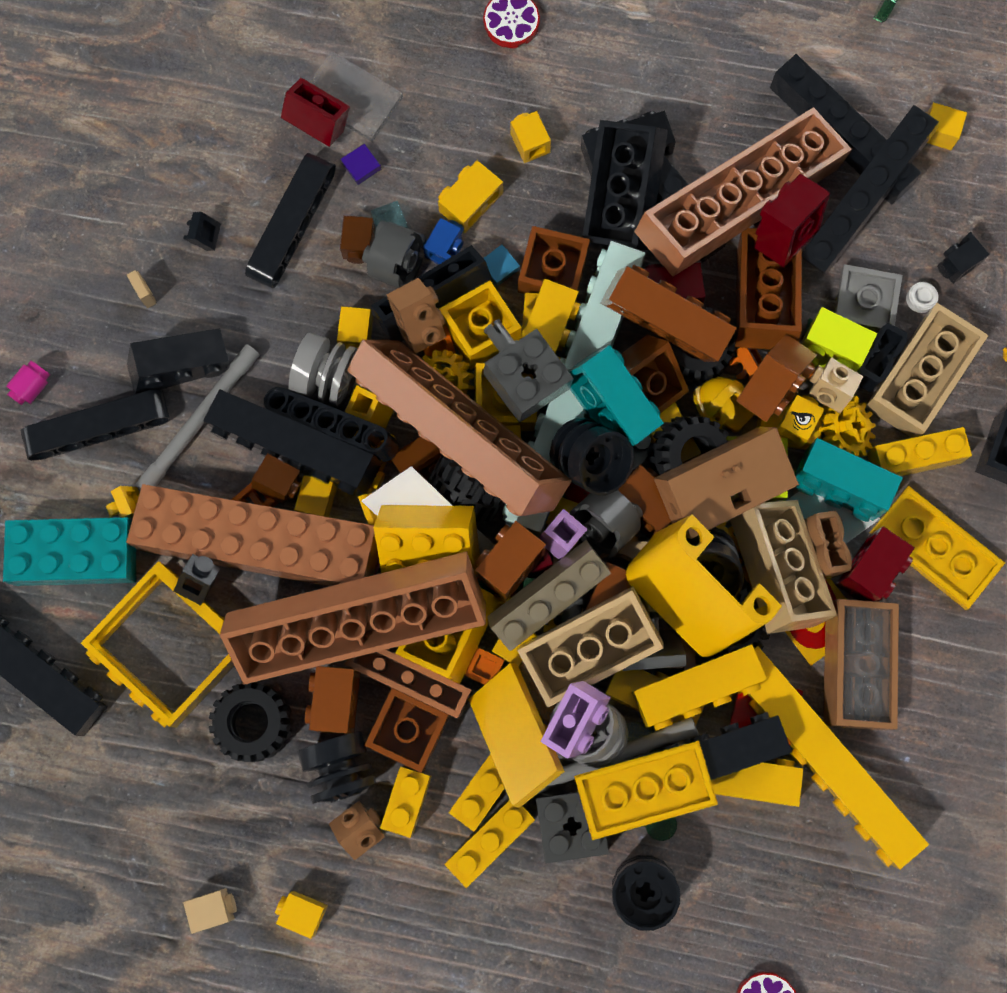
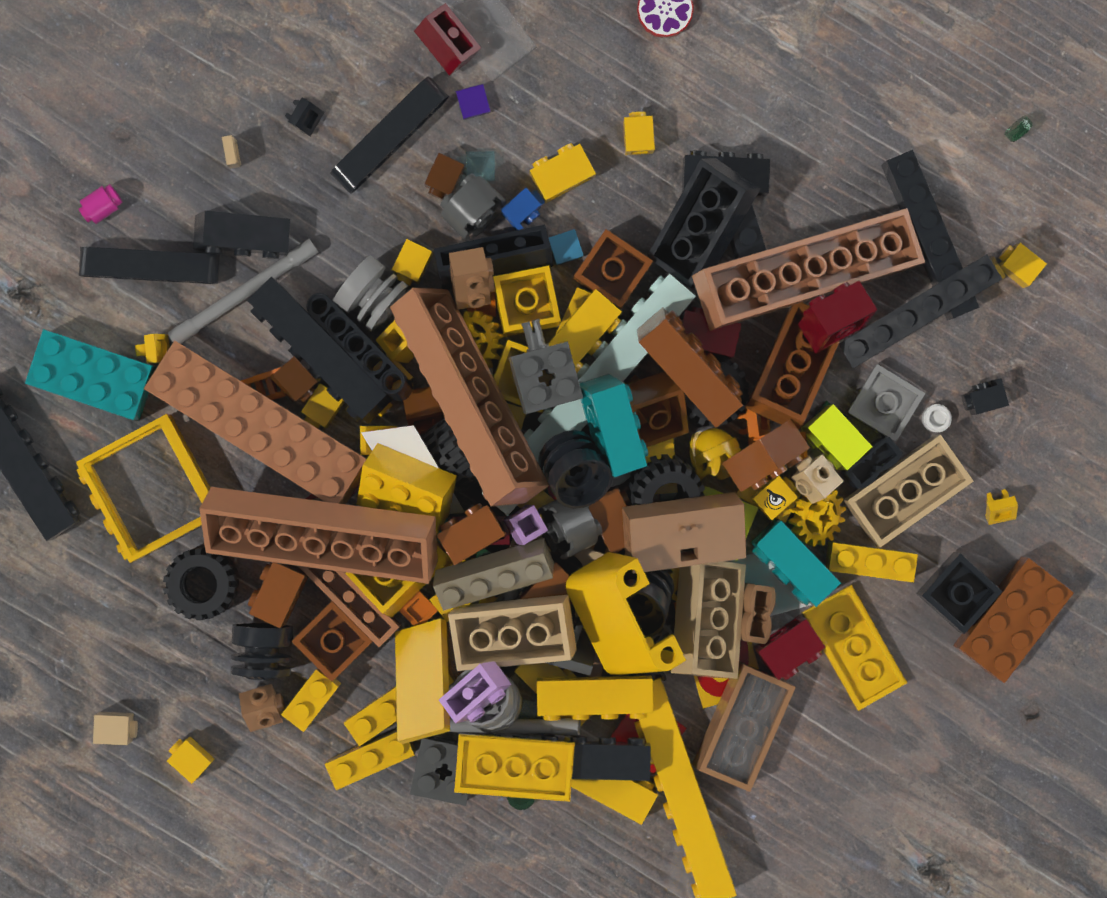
camera: 15 degrees right, 10 degrees up
(200, 571) = (199, 440): black brick -> none
(657, 907) = (482, 863): black wheel -> none

